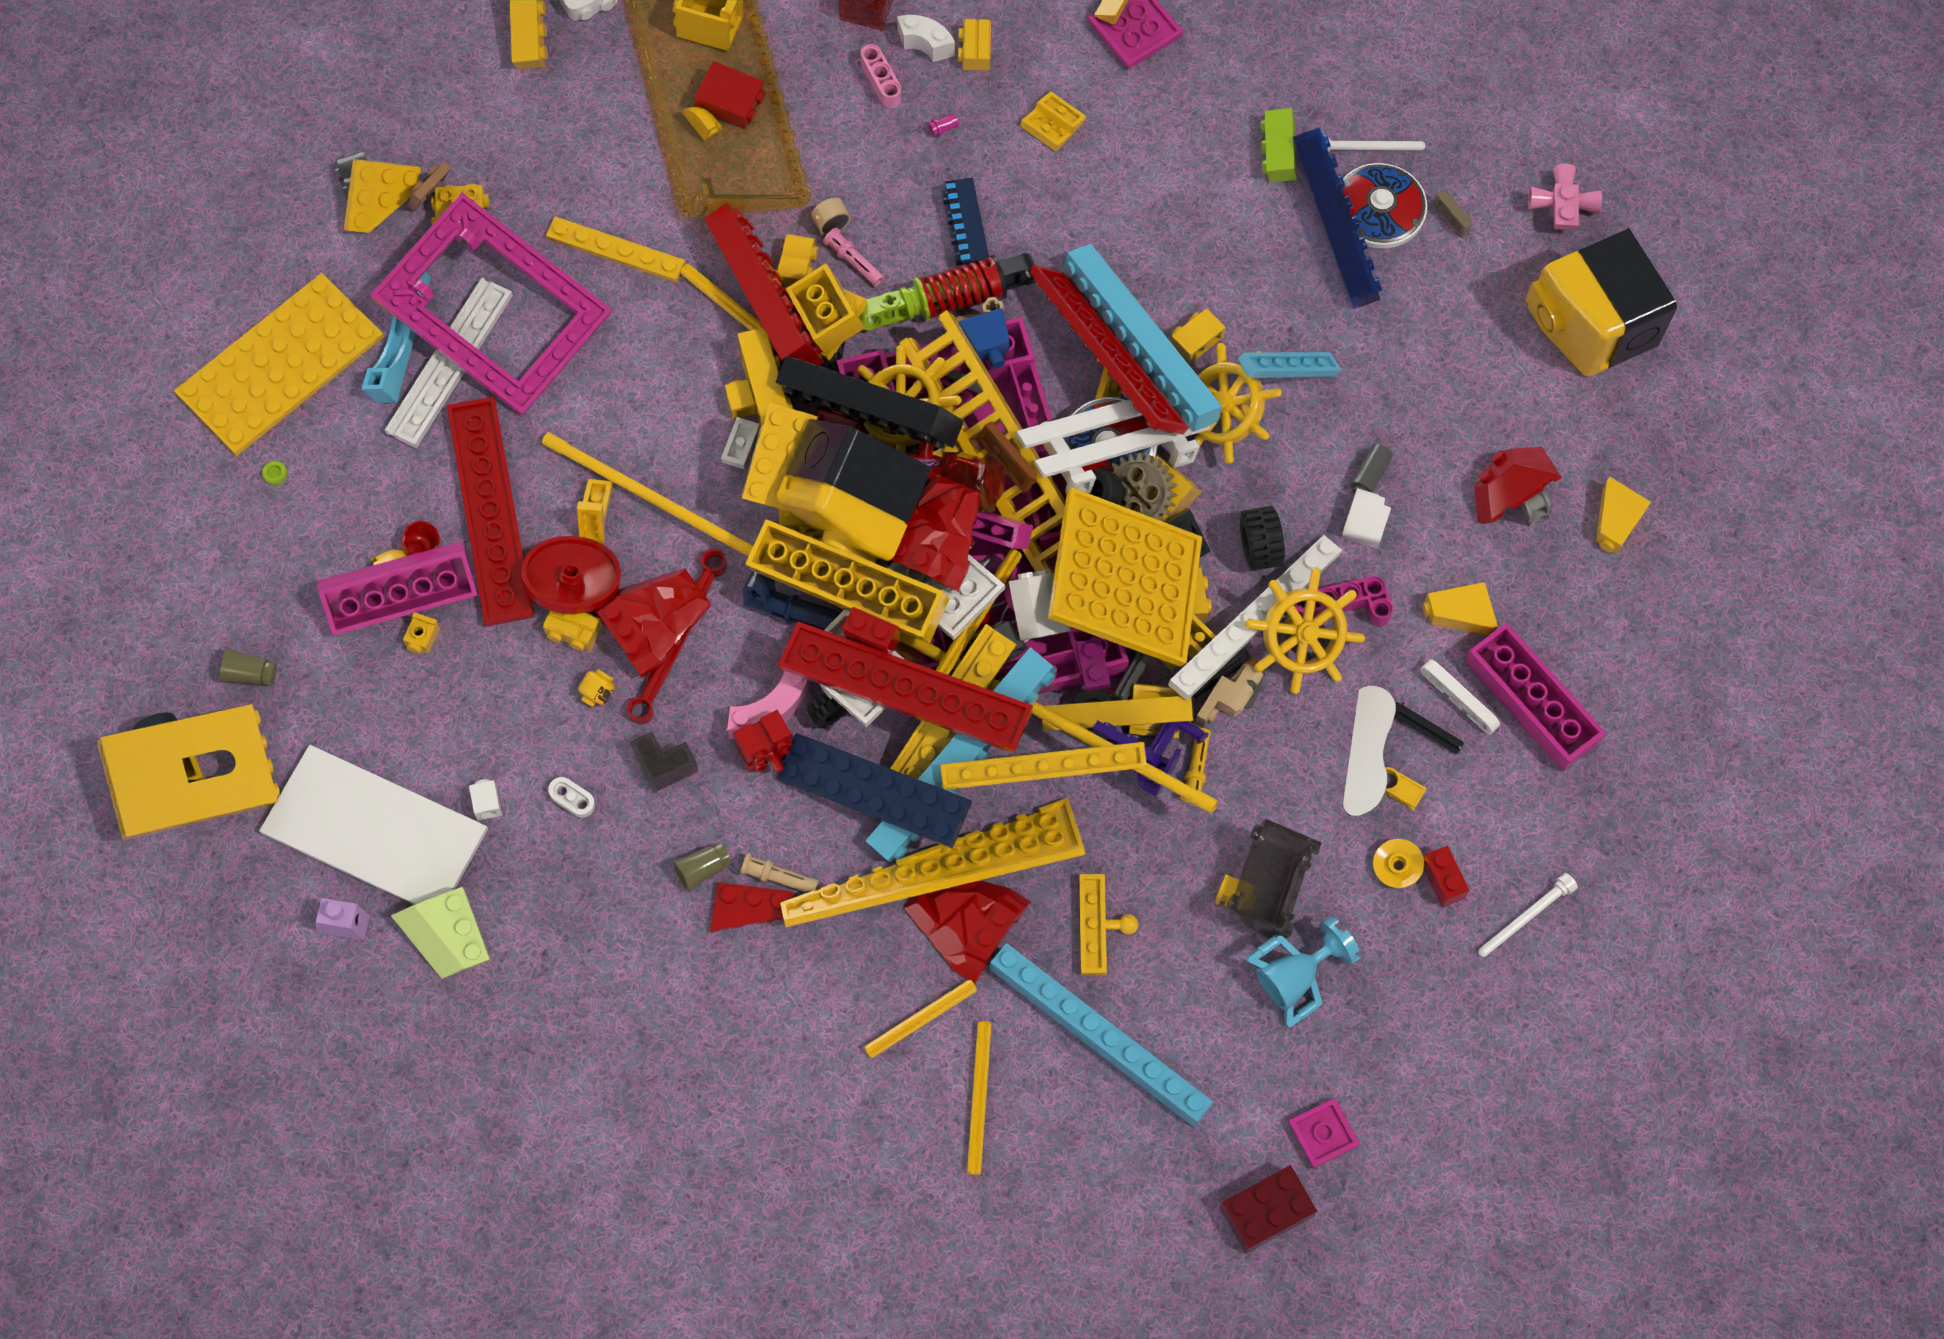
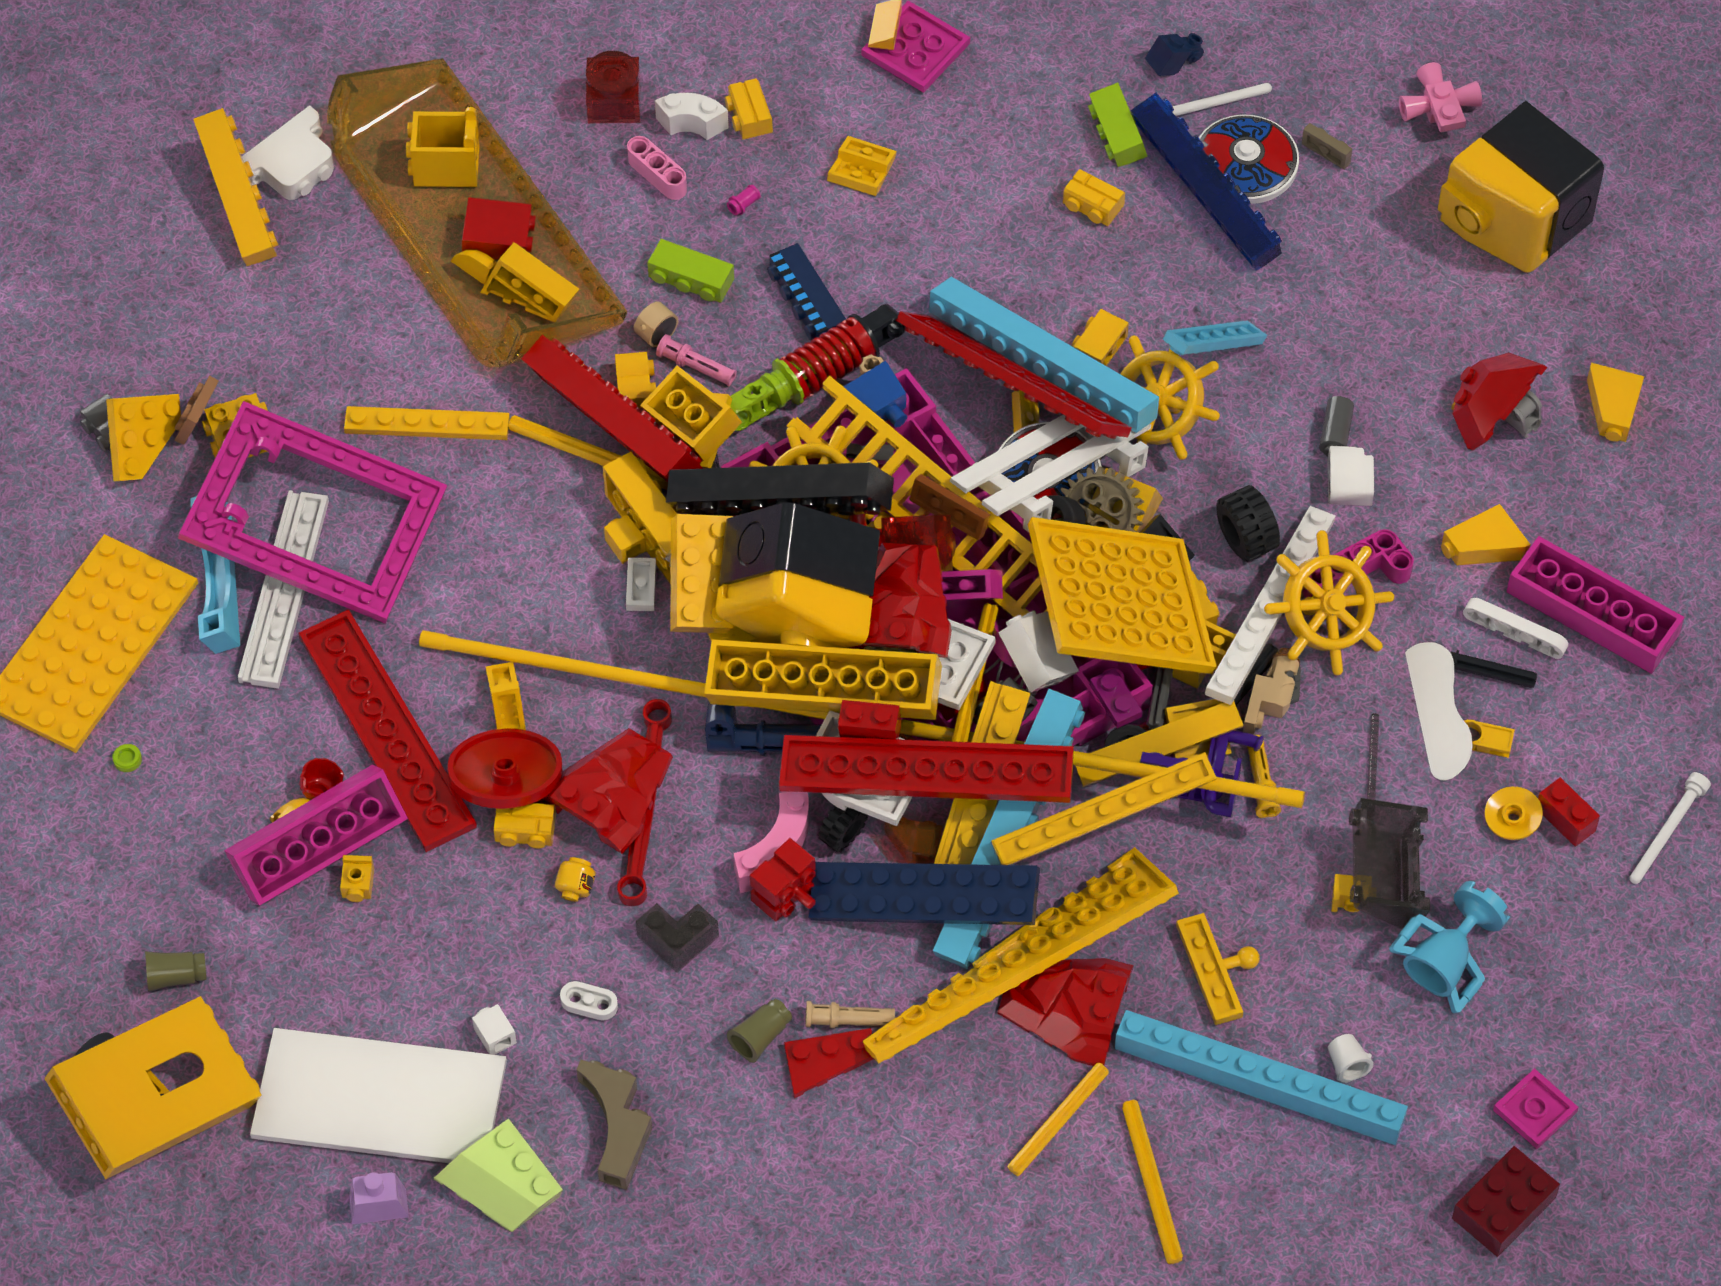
camera: 15 degrees left, 10 degrees down
(561, 921) = (626, 1128): none -> dark tan arch
(739, 151) = (530, 283): none -> yellow wedge
(876, 176) = (690, 271): none -> lime brick
(888, 737) = (915, 840): none -> clear orange slope
(1181, 1040) = (1349, 1058): none -> white piece
(1237, 205) = (1093, 198): none -> yellow brick
(1296, 780) = (1373, 753): none -> clear smoke axle
(1349, 91) = (1172, 51): none -> dark blue brick

